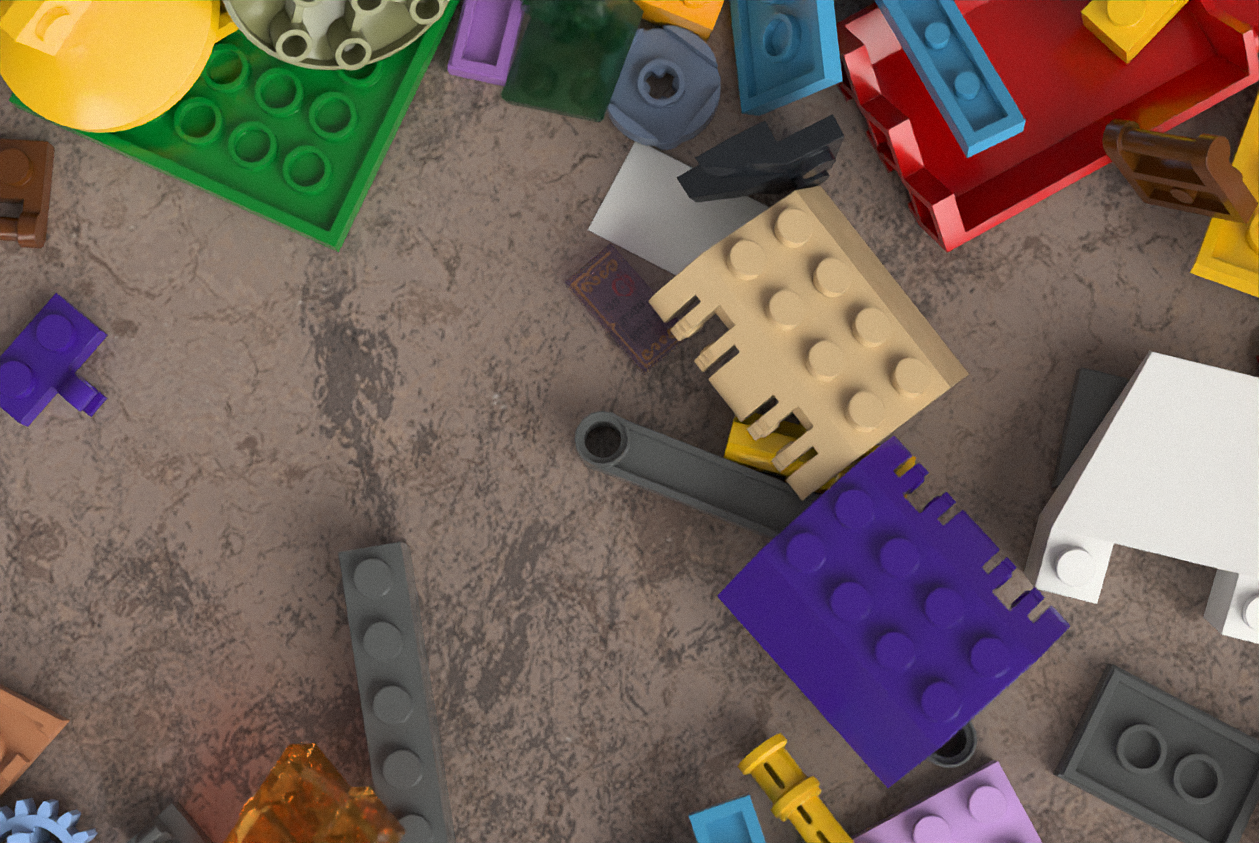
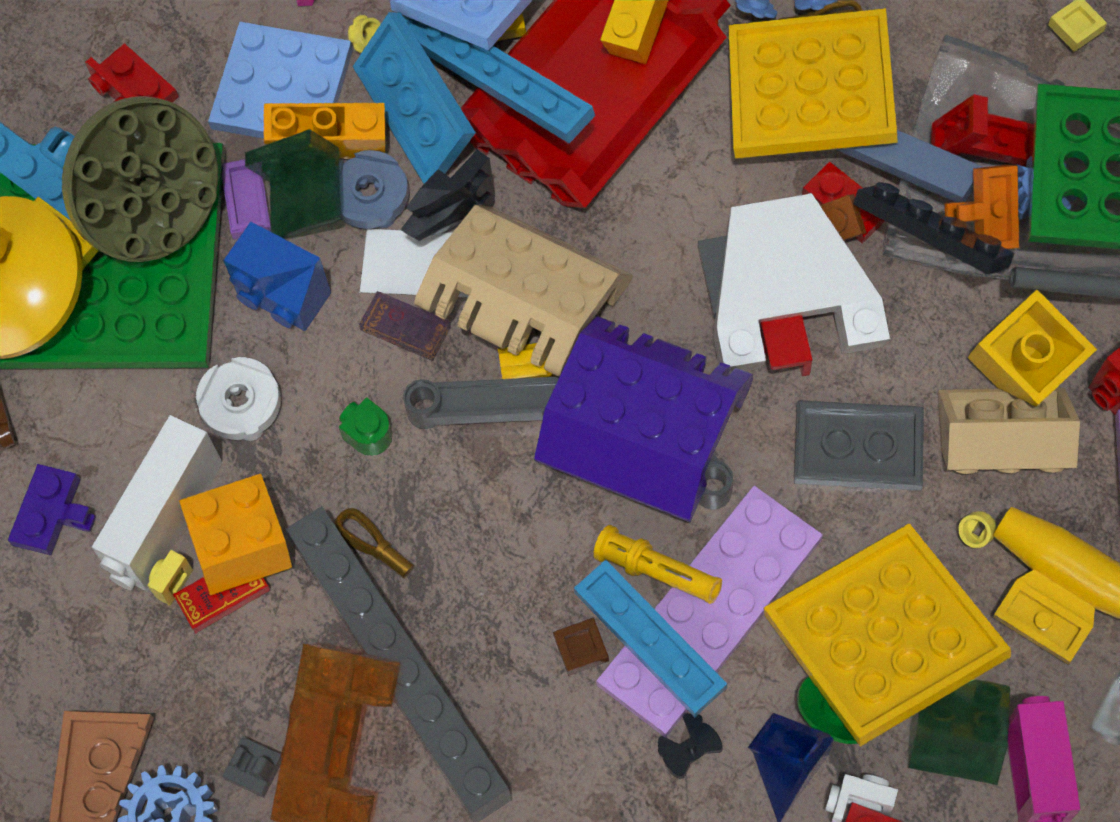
camera: 20 degrees left, 15 degrees down
(163, 536) = (169, 576): none -> light yellow plate
(180, 436) = (149, 512): none -> white brick
(226, 584) = (205, 609): none -> red tile
(270, 522) = (235, 534): none -> light orange piece
(361, 284) = (247, 420): none -> white plate
(461, 624) = (382, 551): none -> pearl gold piece
(479, 168) = (277, 277): none -> blue slope
(512, 438) = (366, 427): none -> green plate
(1136, 586) = (787, 344): none -> red panel
(1180, 171) = (703, 111): reddish brown plate -> none

